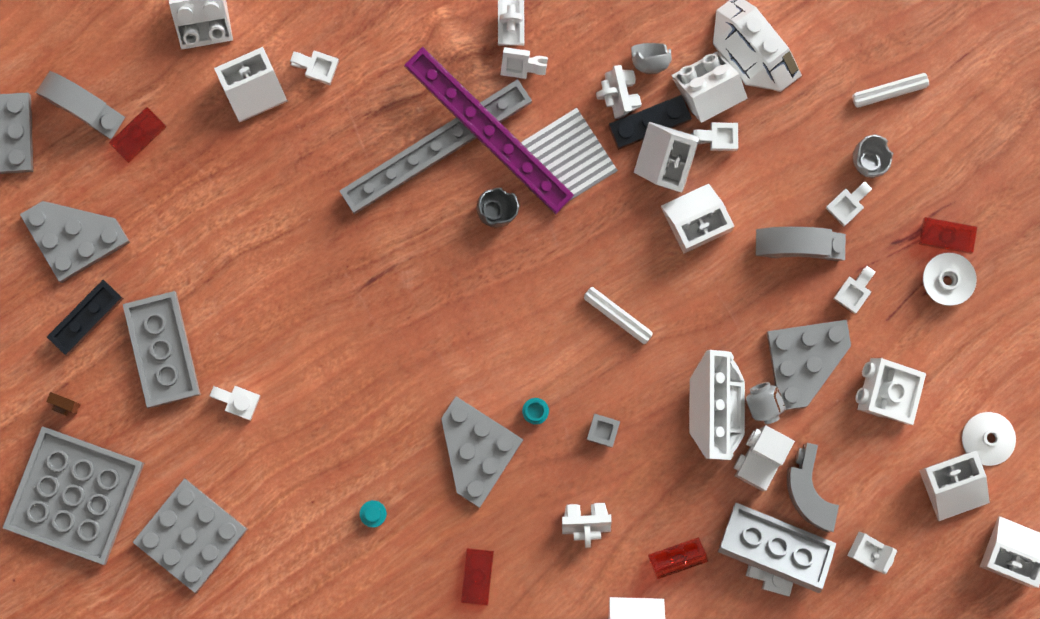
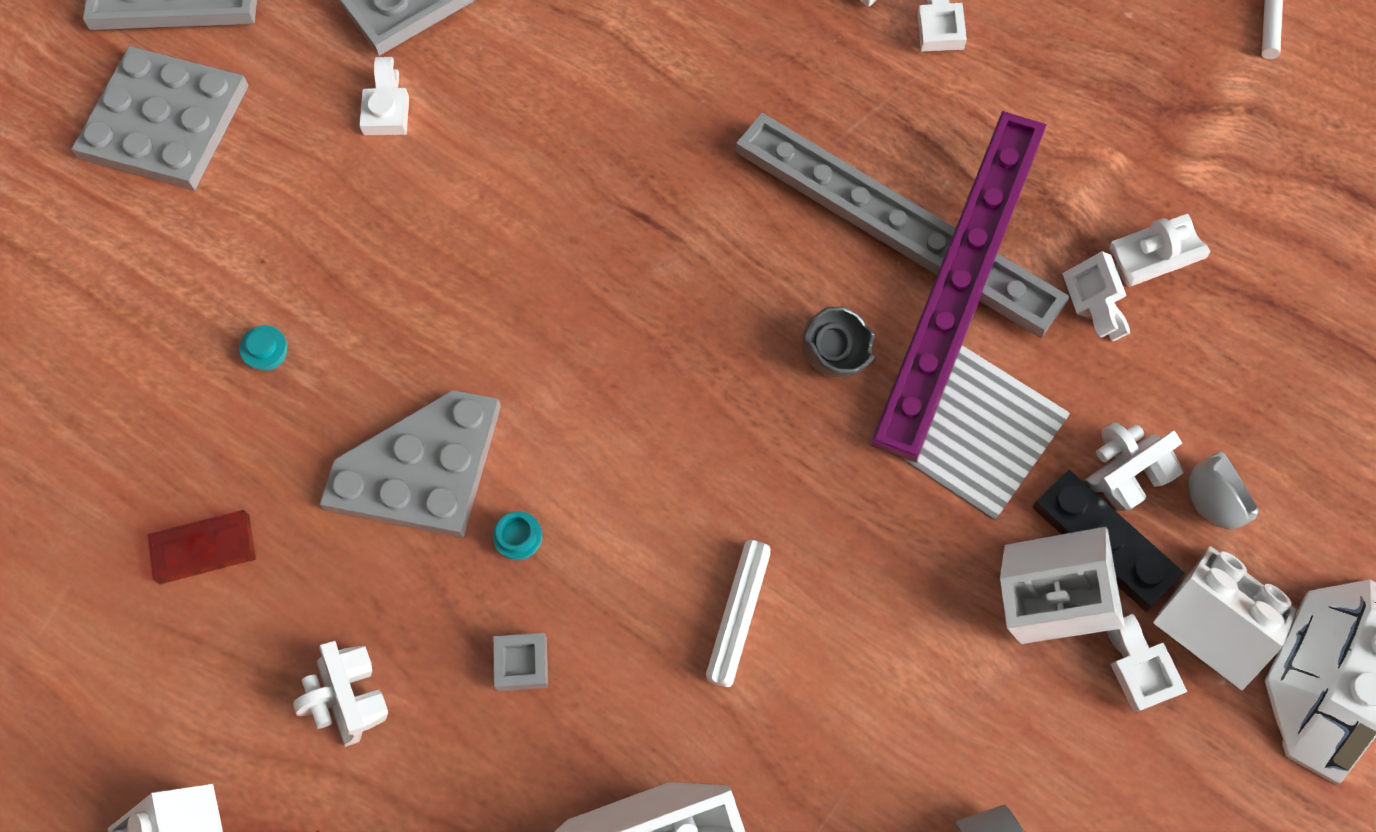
camera: 75 degrees right, 15 degrees down
(697, 218) = (972, 685): white slope -> none

